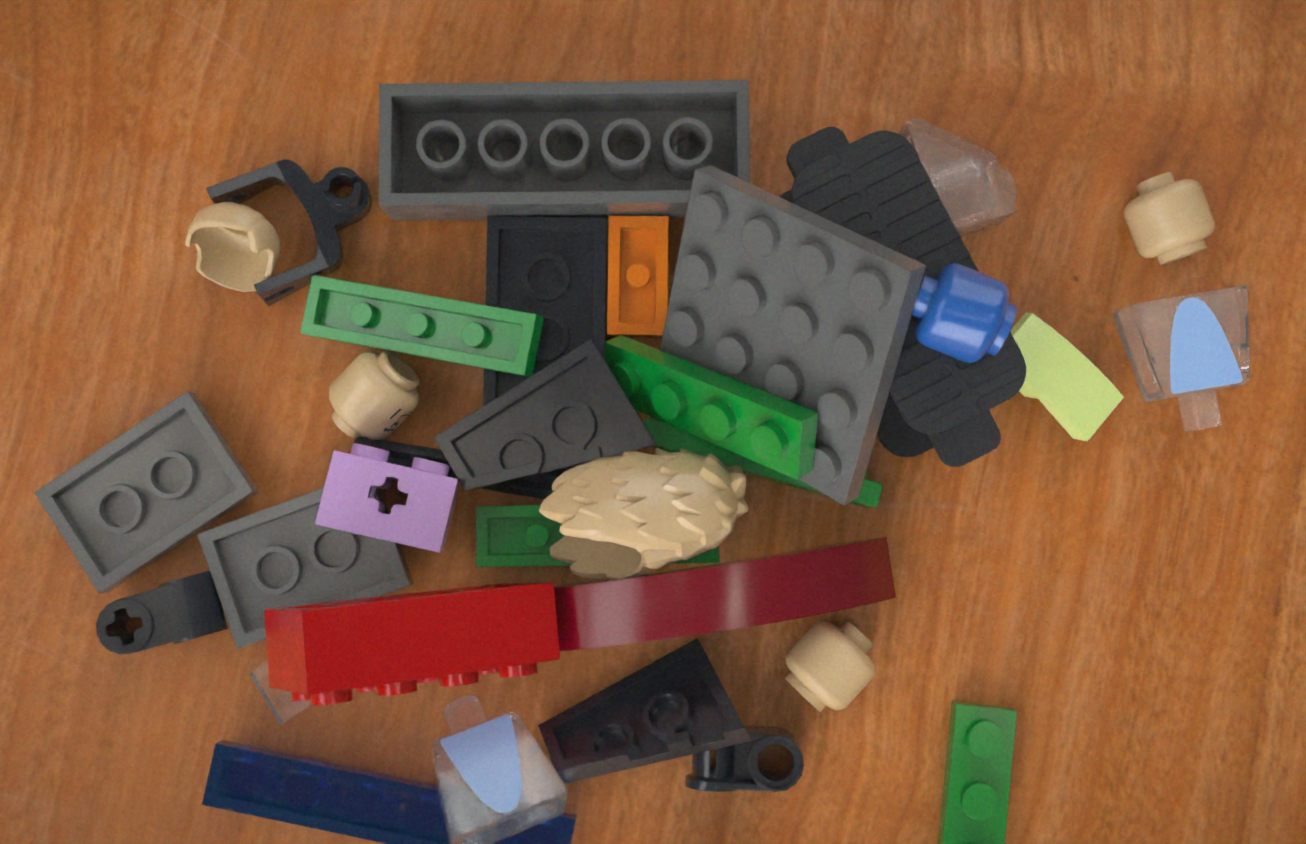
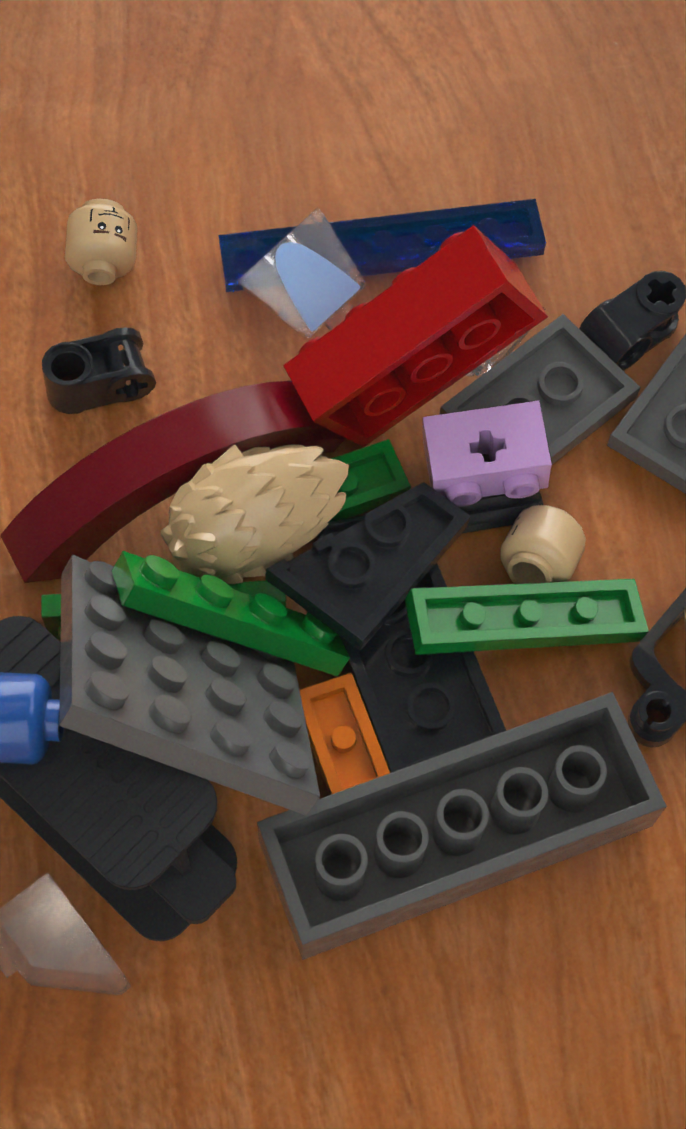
camera: 155 degrees right, 20 degrees down
(645, 719) = (193, 361): black wing -> none
(830, 665) = (38, 458): tan head -> none

